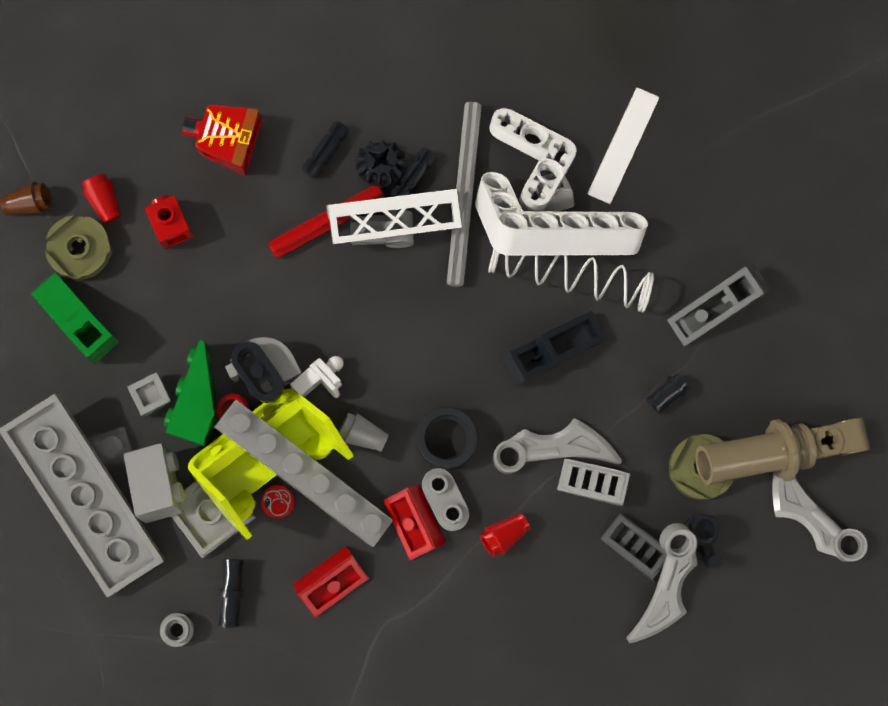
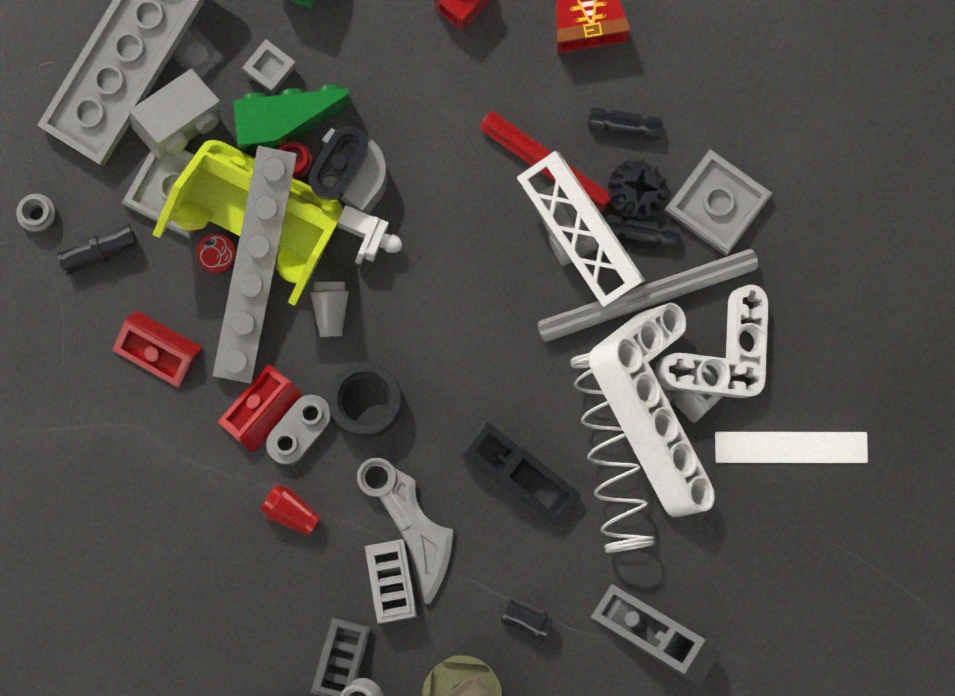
camera: 70 degrees right, 0 degrees up
(418, 111) = (718, 202): none -> light grey tile

